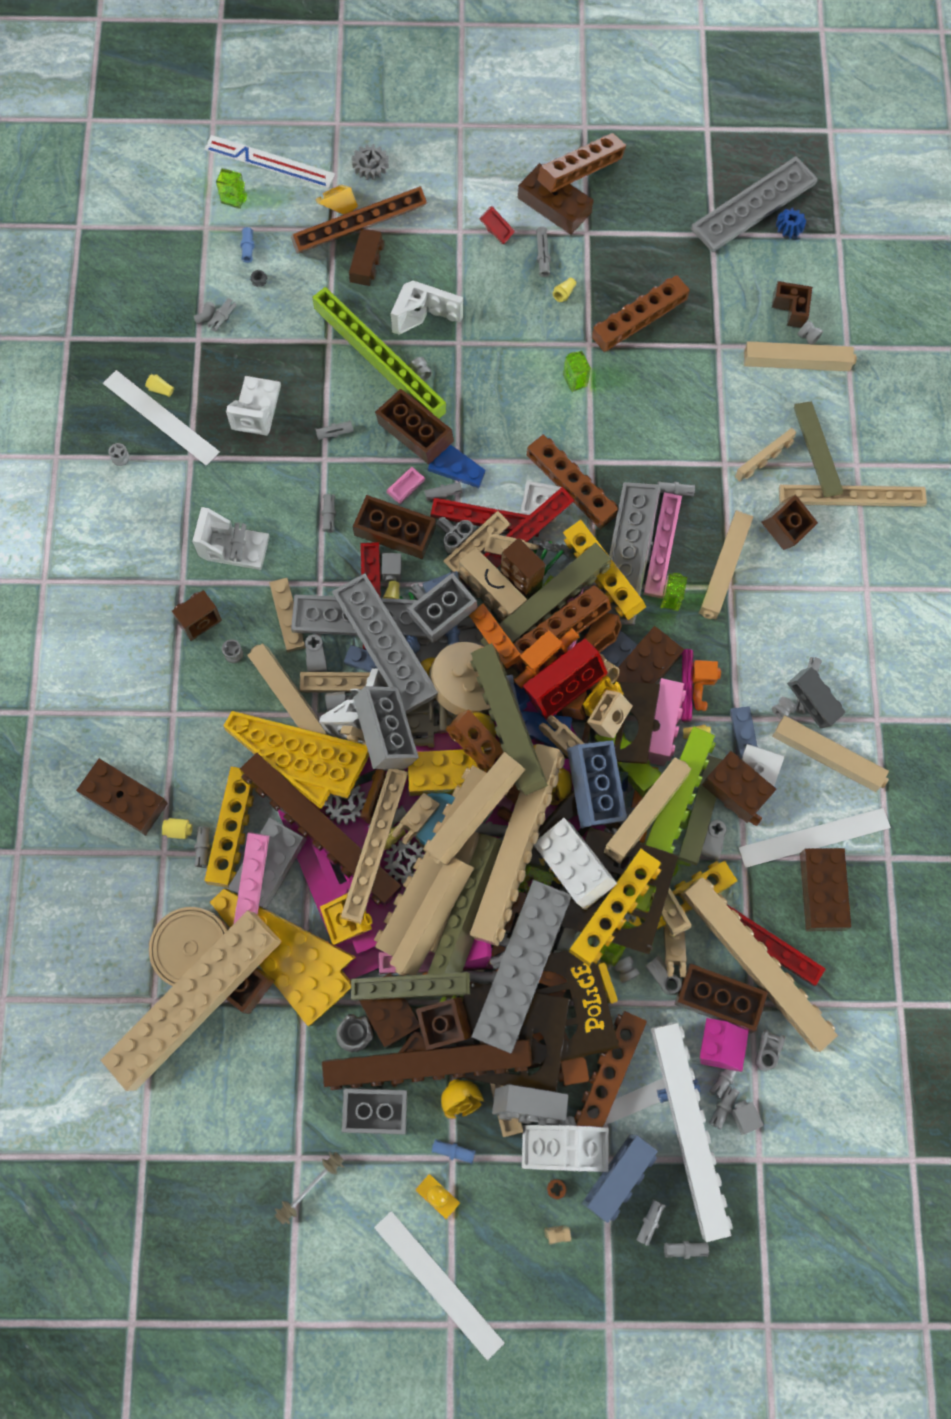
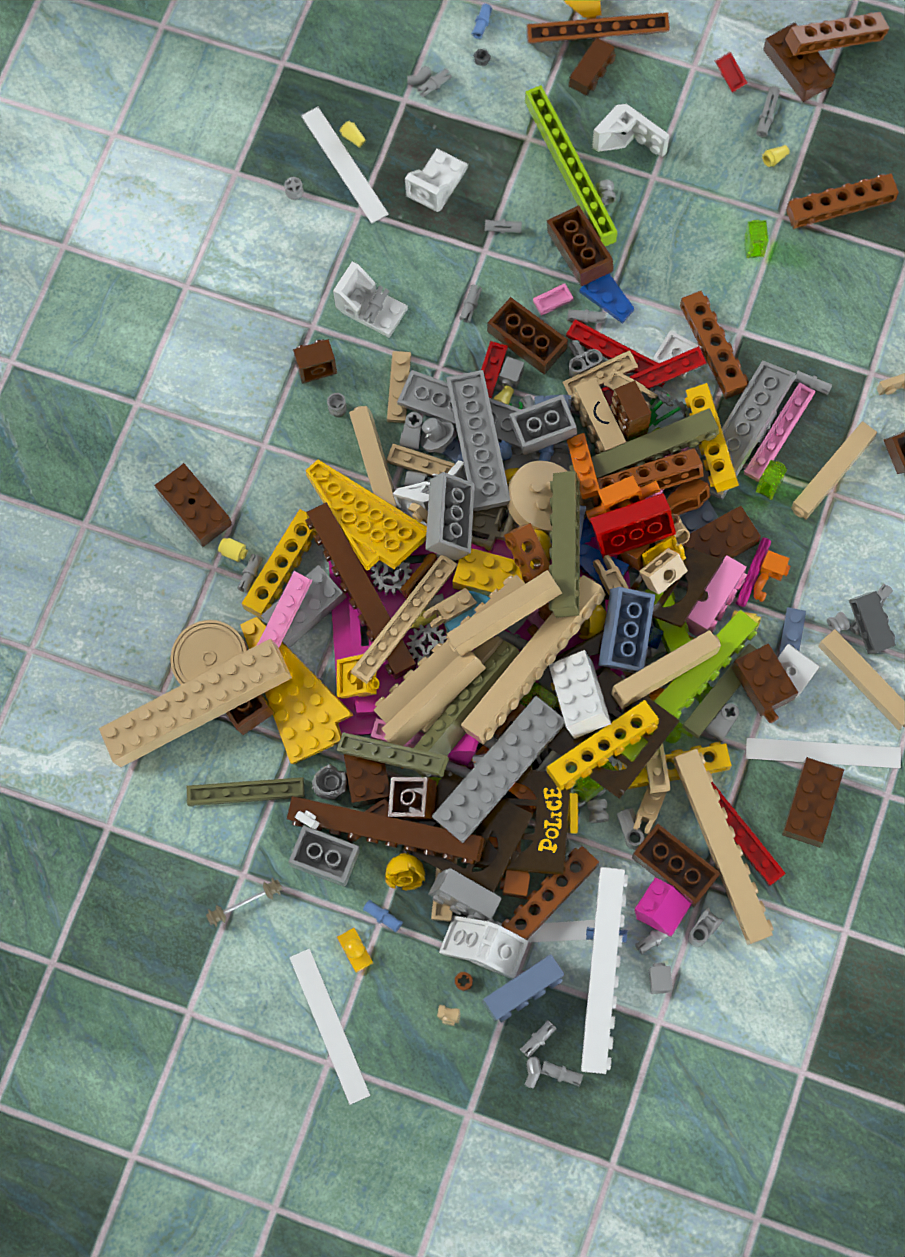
camera: 25 degrees right, 0 degrees up
(271, 1071) = (245, 791): none -> olive tile
(341, 650) = (437, 435): none -> light grey plate
(346, 1081) = (308, 819): none -> white plate
(658, 1256) = (534, 1071): none -> light grey arm
(724, 1107) = (643, 963): light grey pin -> none

